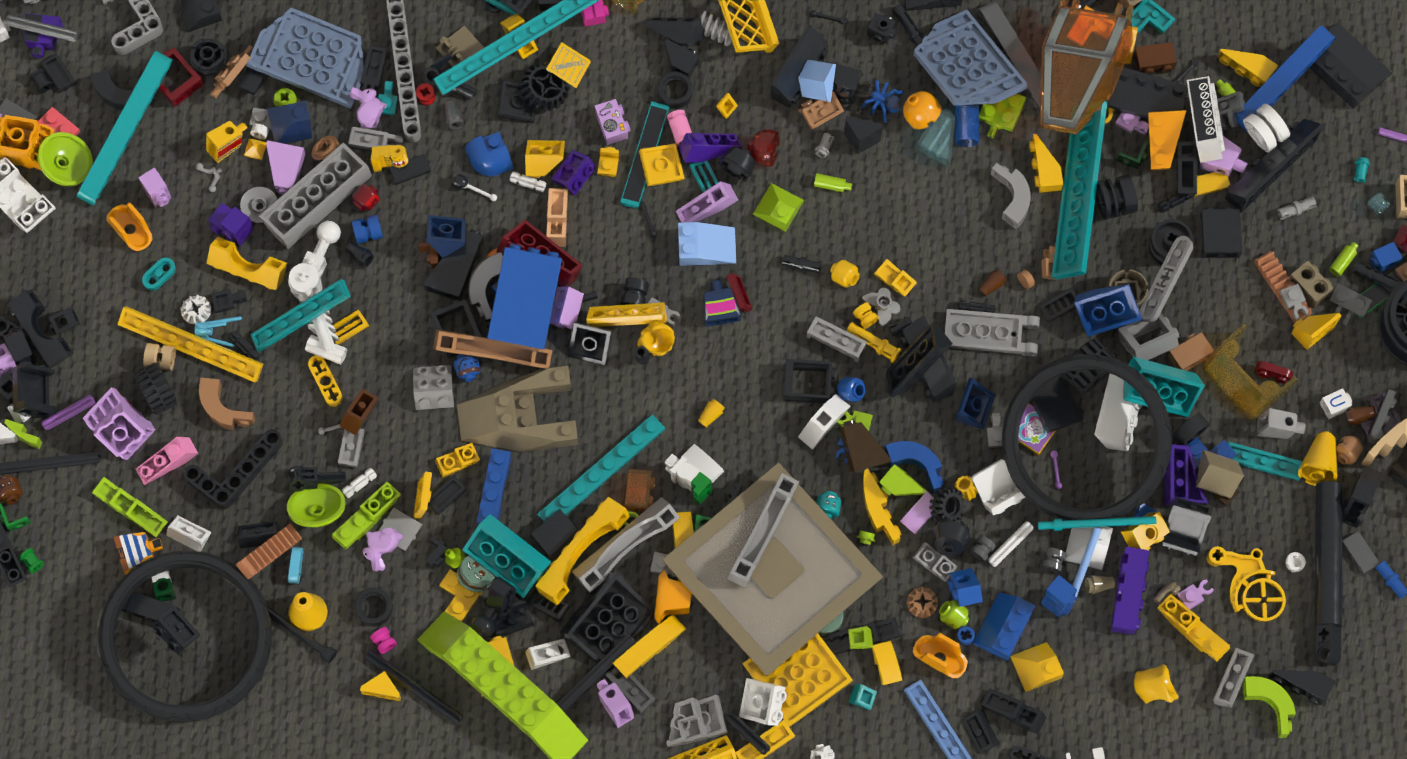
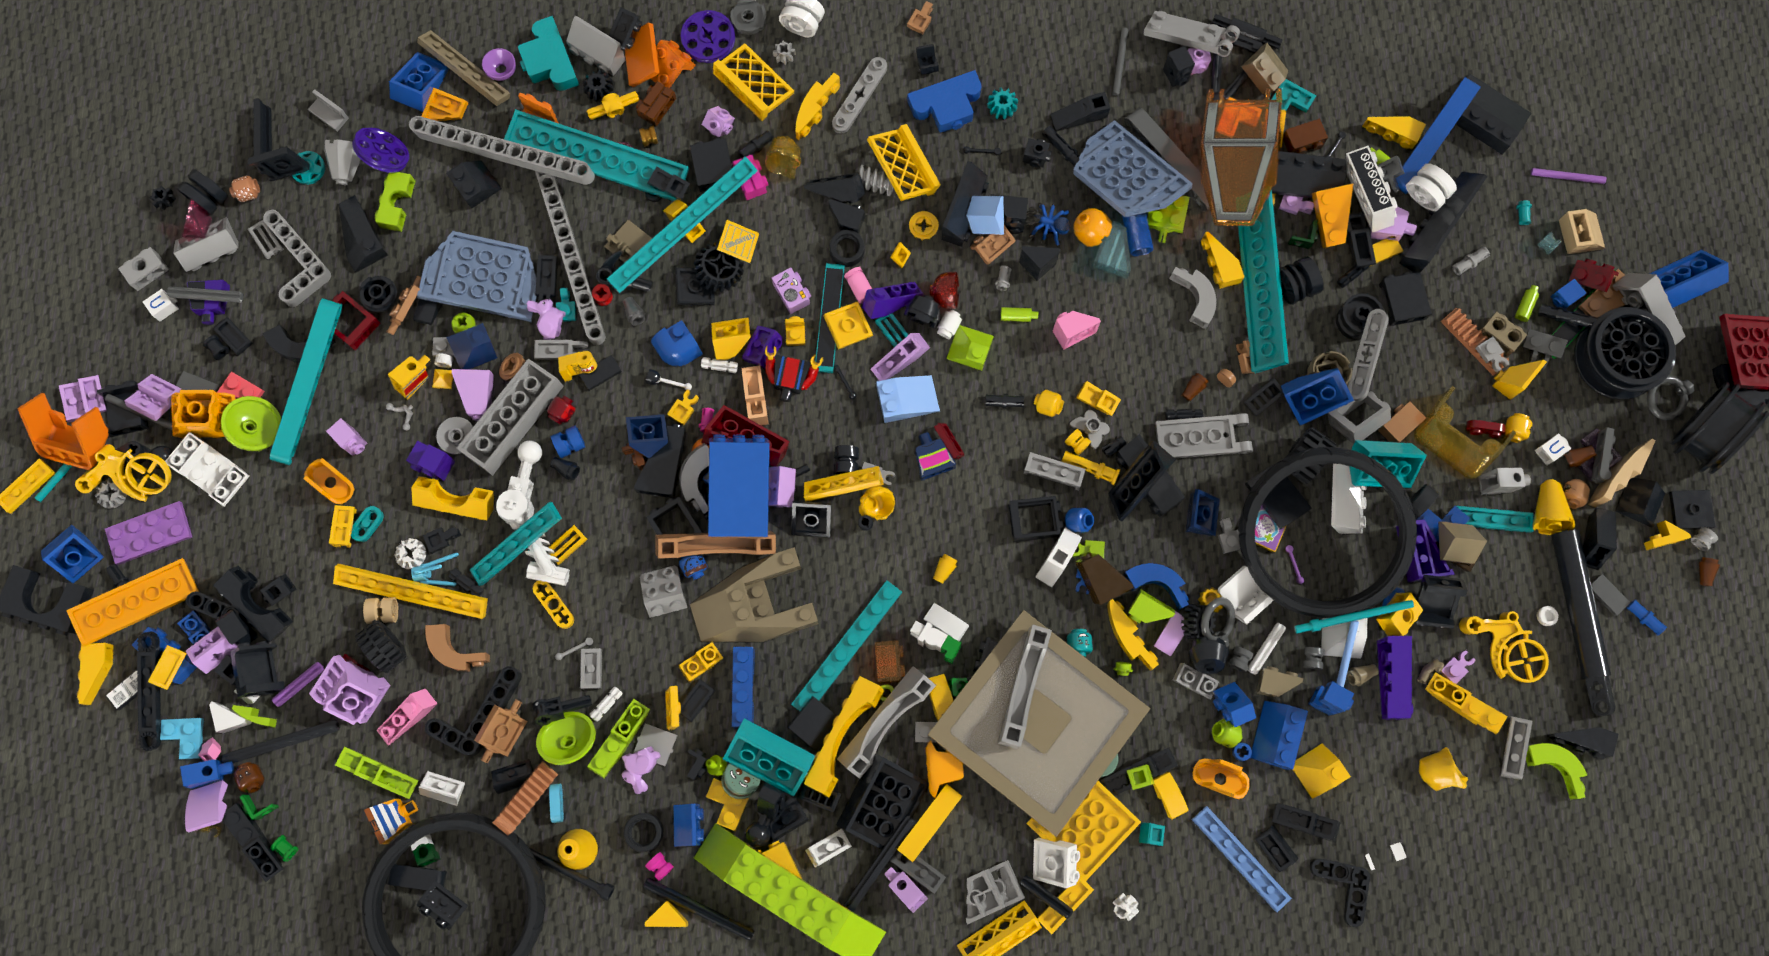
camera: 10 degrees left, 5 degrees up
(136, 271) = (342, 526): none -> yellow hinge
(255, 487) = (500, 730): none -> medium nougat plate
(358, 412) = (592, 632): reddish brown brick -> none
(417, 606) = (687, 825): none -> blue slope
(483, 219) = (681, 410): none -> yellow plate
(506, 227) = (707, 416): none -> dark pink pin
(596, 202) = (790, 374): none -> torso
(750, 74) = (917, 220): none -> yellow gear
(761, 181) = (949, 324): none -> white brick
(884, 205) = (1074, 327): none -> bright pink slope
(929, 608) = (1187, 732): medium nougat gear -> none
(980, 510) = (1229, 624): none -> dark grey piece
(1012, 577) = (1275, 683): none -> dark tan slope
(1308, 377) = (1521, 425): none -> yellow head

